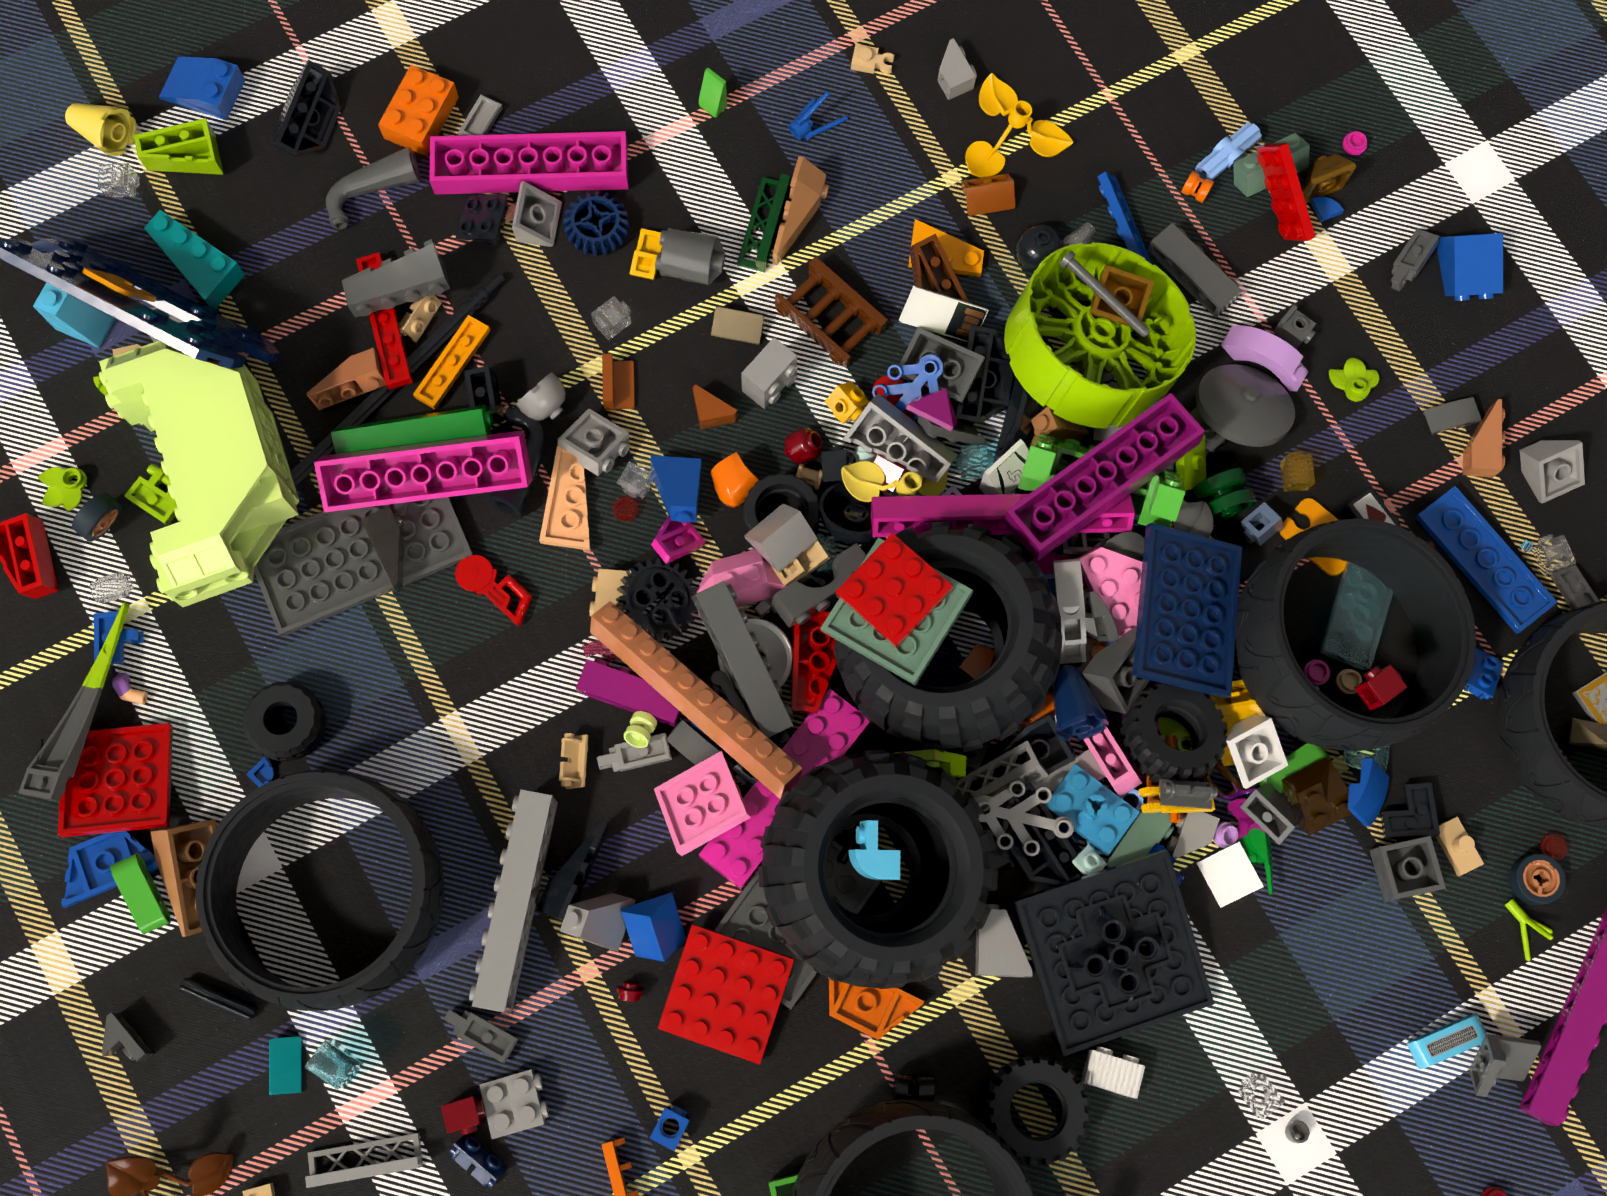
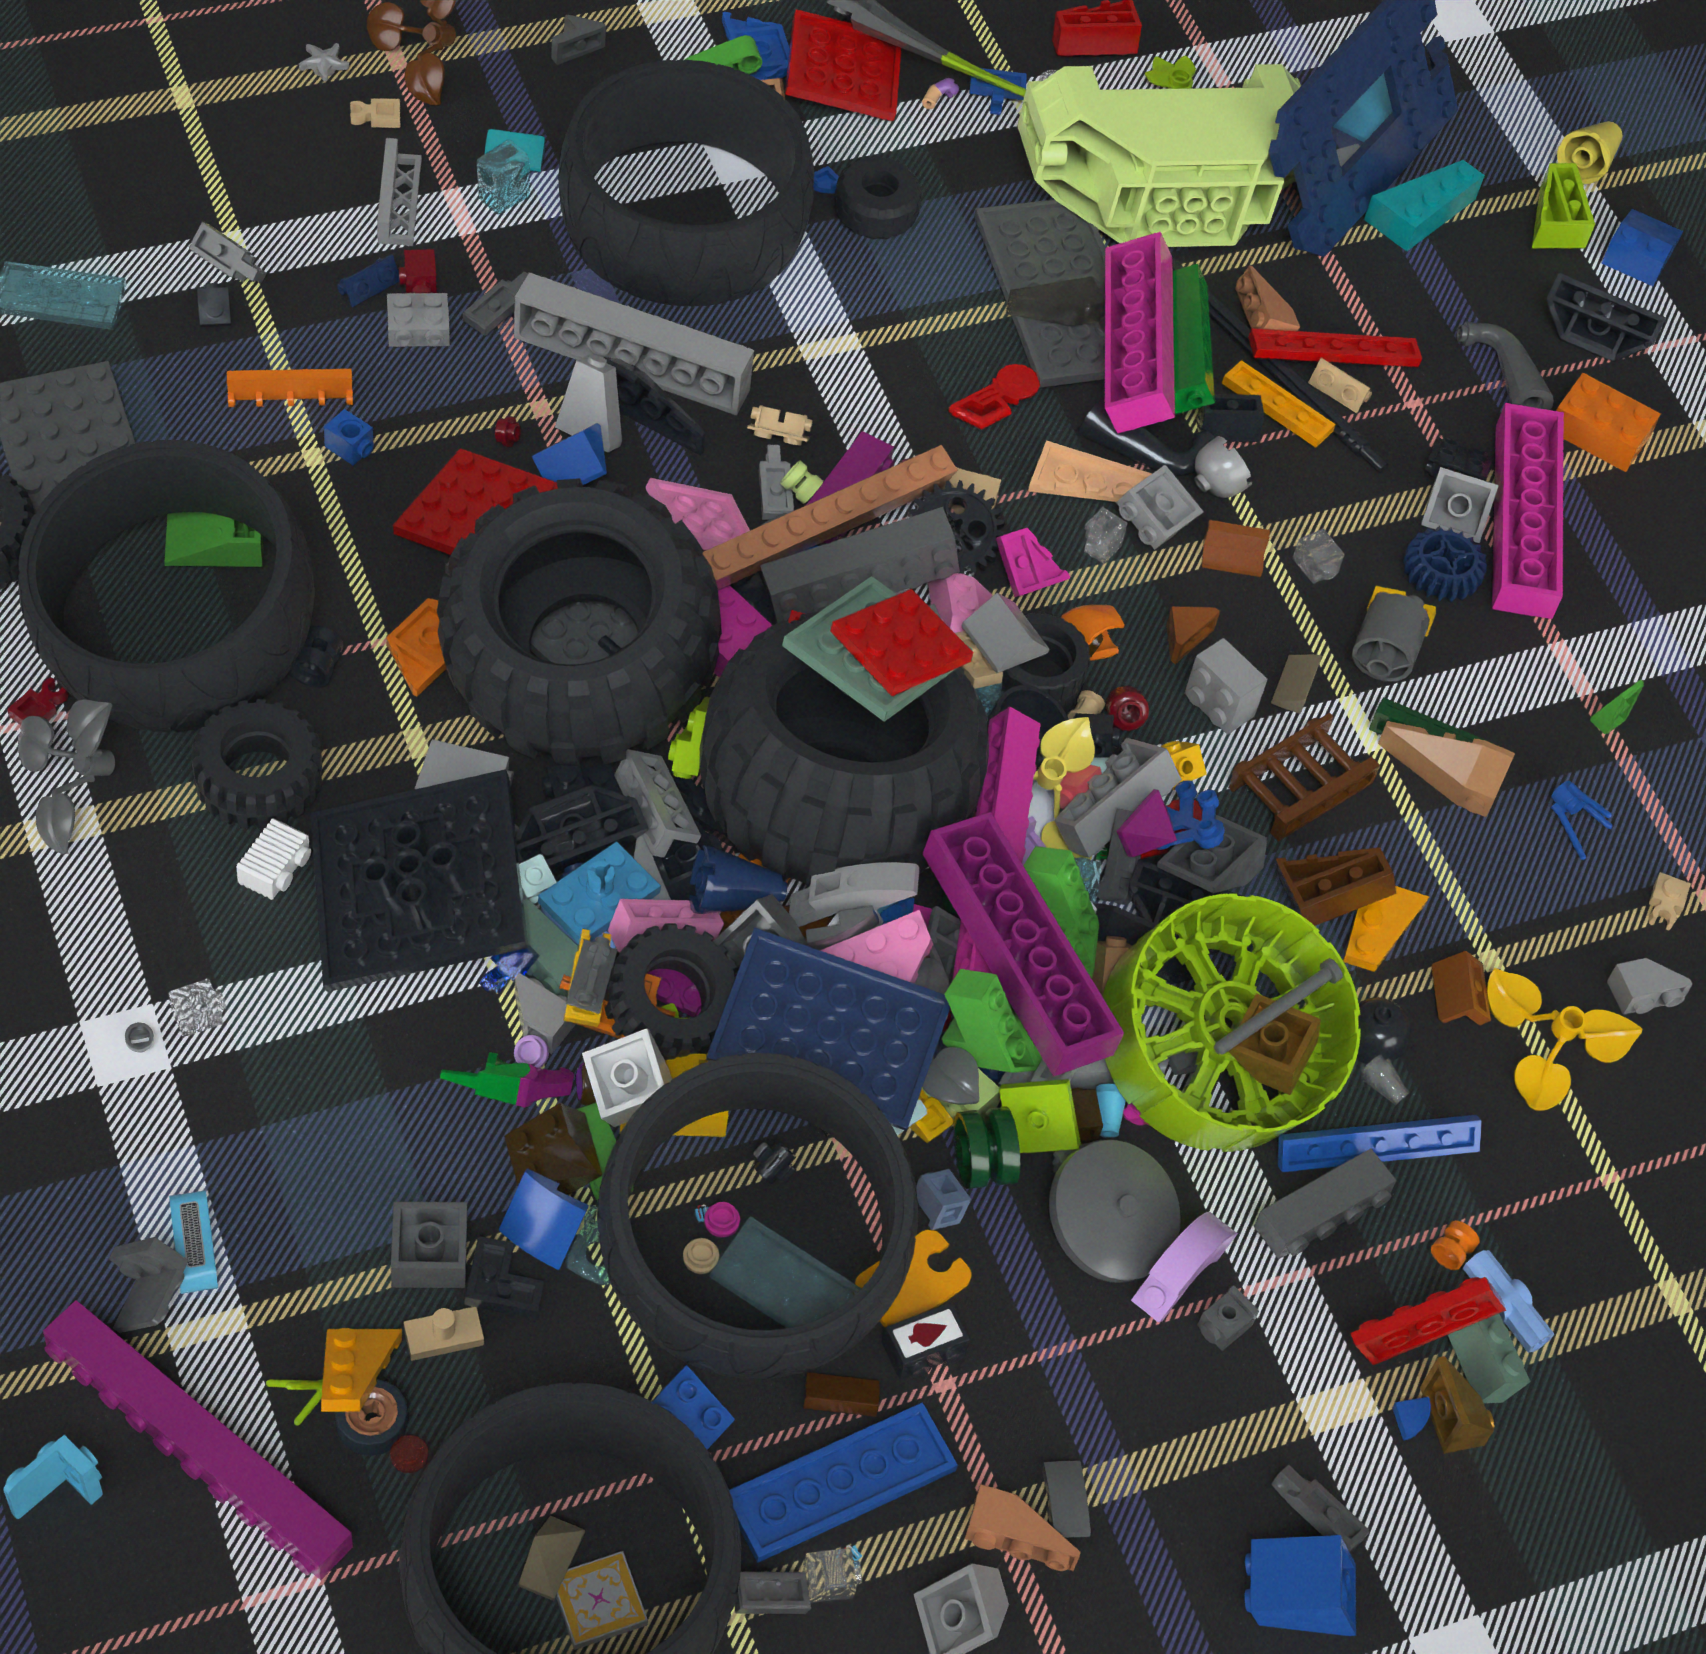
camera: 95 degrees right, 20 degrees down
(96, 516) = (1130, 74): black wheel -> none
(117, 180) = (1527, 157): clear brick -> none
(118, 284) = (1380, 92): light orange piece -> none
(397, 281) = (1377, 353): dark grey wedge -> none
(481, 117) = (1592, 484): light grey tile -> none
(625, 509) = (1072, 529): clear red plate -> none
(678, 485) = (1090, 573): blue slope -> none
(869, 860) = (584, 546): medium azure brick -> none
(941, 313) = (1286, 860): white piece -> none
(1017, 816) = (623, 773): light grey plant -> none
(1230, 874) = (478, 1042): white sticker -> none
(1270, 812) = (548, 1083): dark grey slope -> none
(1297, 471) = (1010, 1264): clear yellow brick -> none
(1354, 379) = (1143, 1382): lime plate -> none
(1355, 143) = (1515, 1483): dark pink plate -> none
(1380, 686) = (673, 1161): dark red brick -> none
(1513, 899) = (353, 1365): none -> light orange wing

